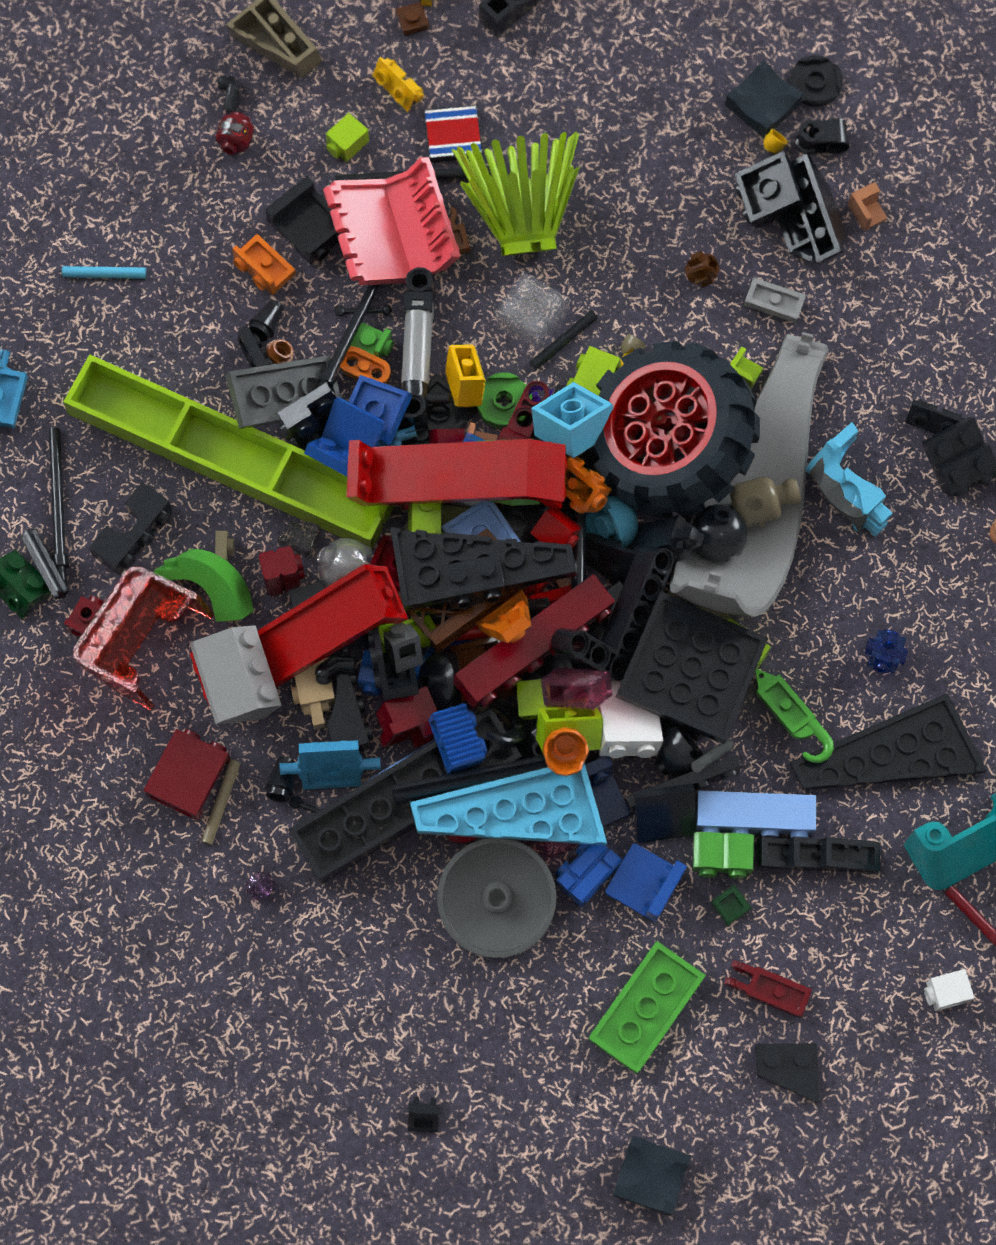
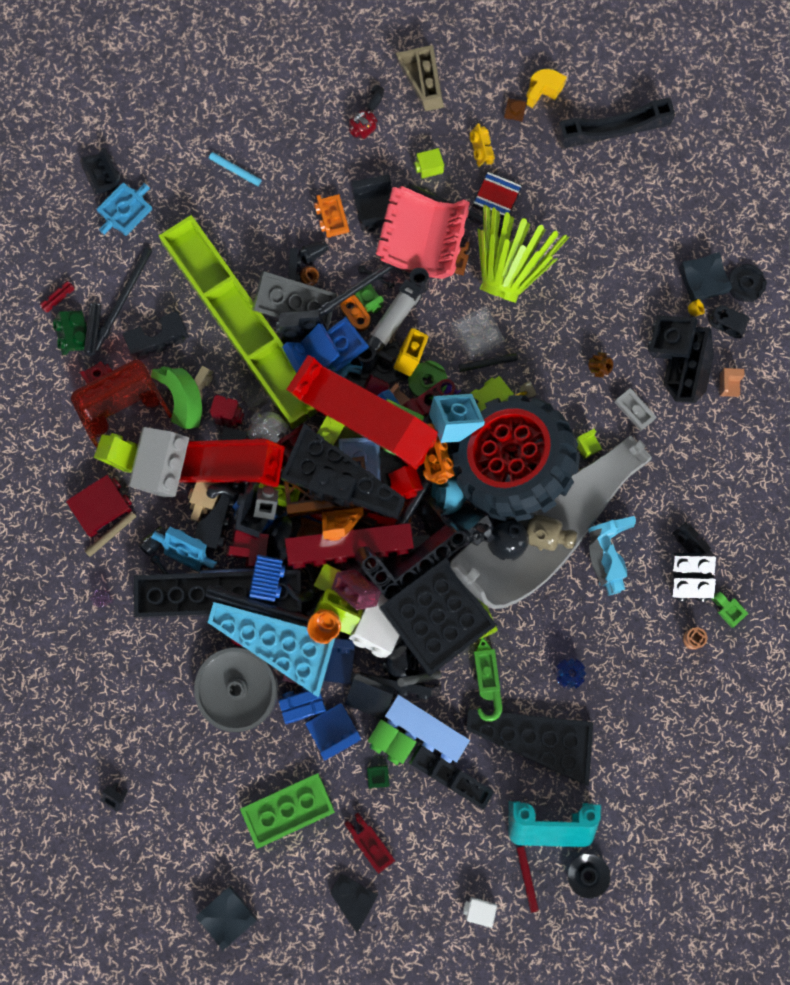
camera: 30 degrees right, 5 degrees up
(175, 695) = (116, 452): none -> lime brick

